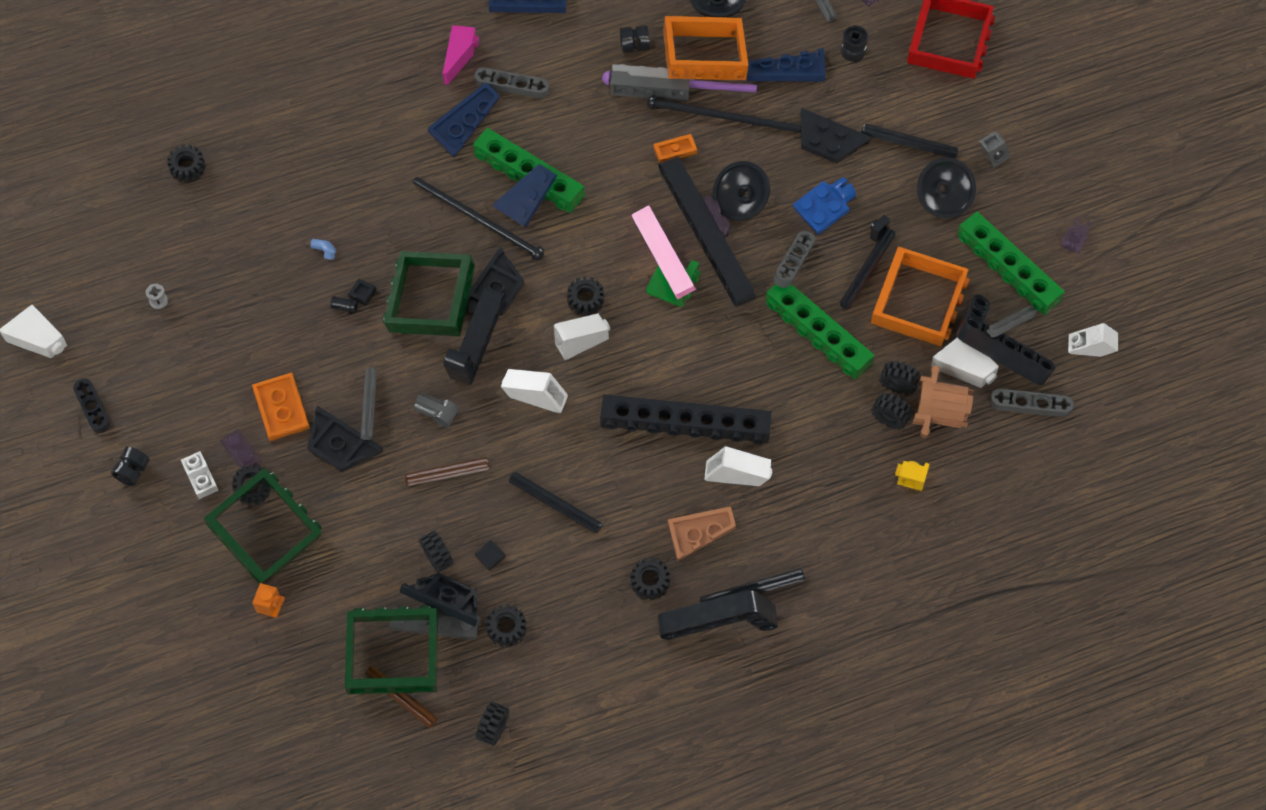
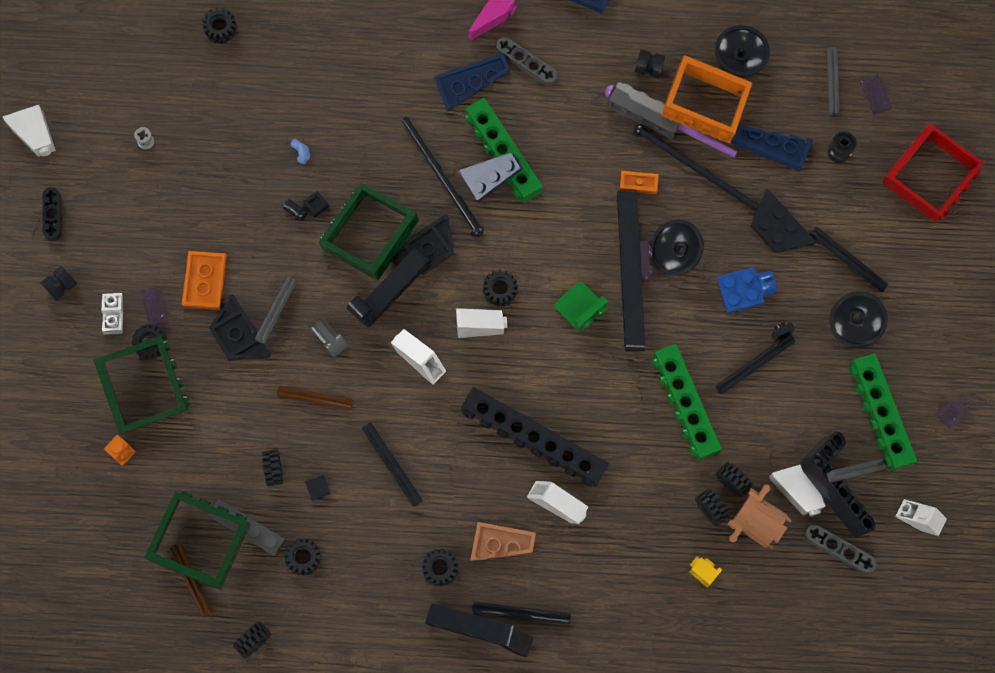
camera: 20 degrees right, 10 degrees up
(446, 596) = (263, 510): black wing -> none
(663, 252) = (582, 277): bright pink tile -> none
(795, 259) = (693, 330): dark grey beam -> none
(929, 265) = (813, 386): orange window -> none
(994, 149) = (919, 300): dark grey brick -> none

